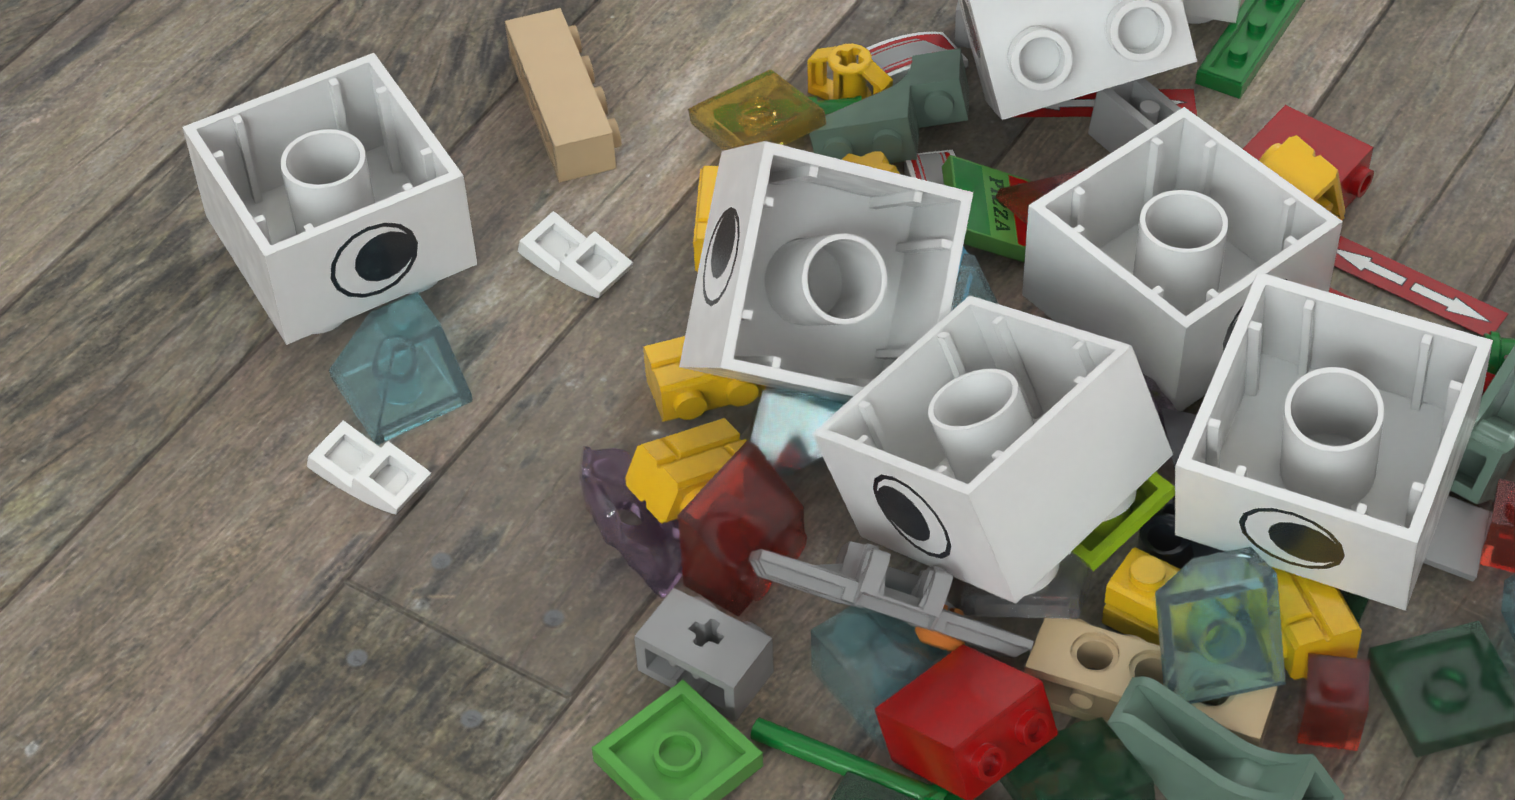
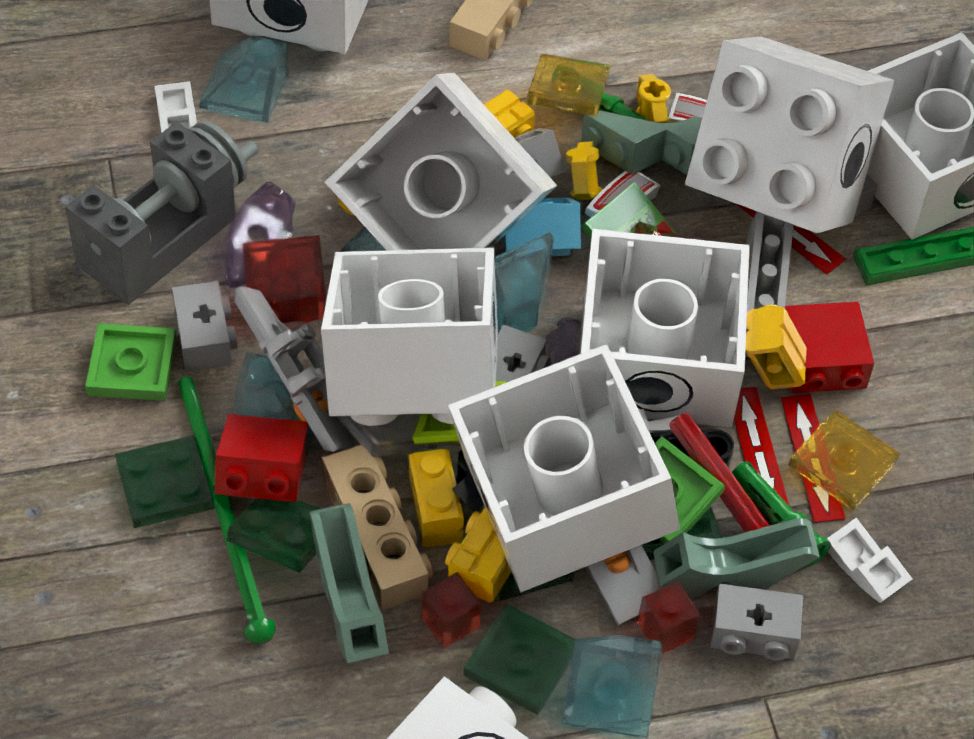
camera: 40 degrees right, 5 degrees up
(514, 569) = (165, 220): none -> dark grey piece
(578, 261) = (398, 82): white slope -> none
(678, 466) = (293, 220): yellow brick -> none
(1221, 627) = (415, 514): clear light blue slope -> none
(1442, 261) = (844, 459): none -> clear yellow plate

